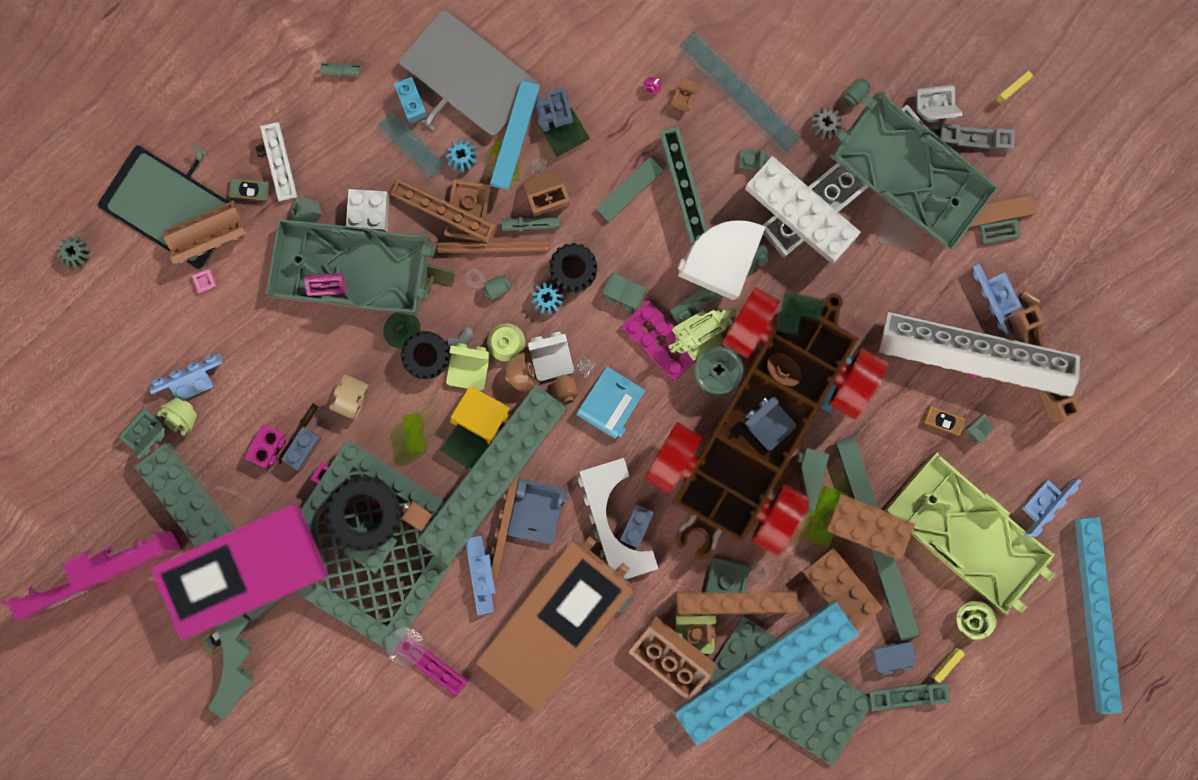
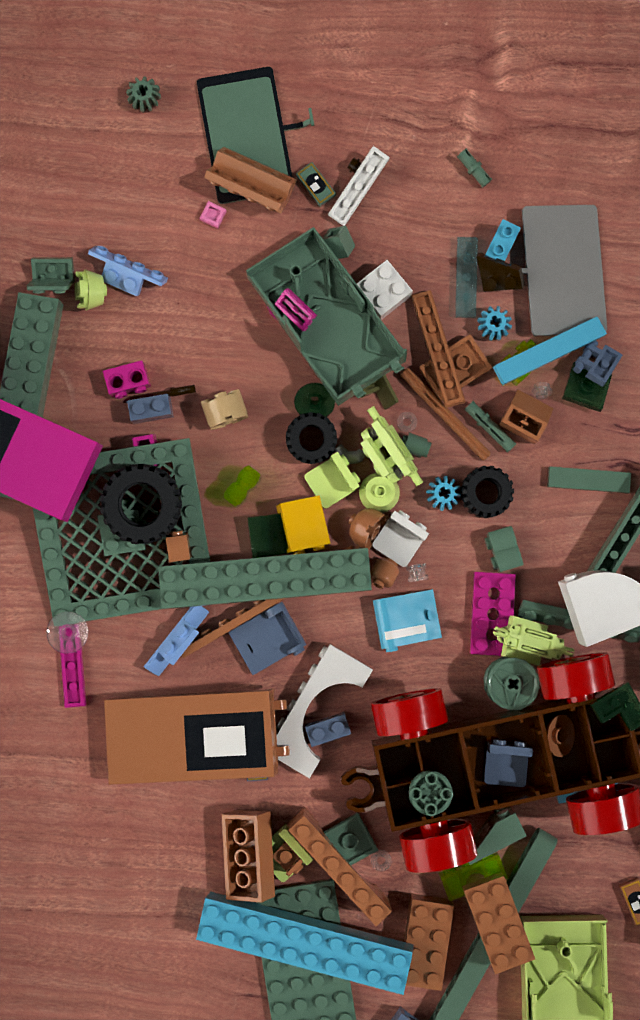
camera: 50 degrees right, 0 degrees up
(430, 121) = (499, 275): none -> dark brown wing
(482, 309) = (388, 450): none -> yellowish green piece
(739, 492) = (430, 792): none -> sand green tile

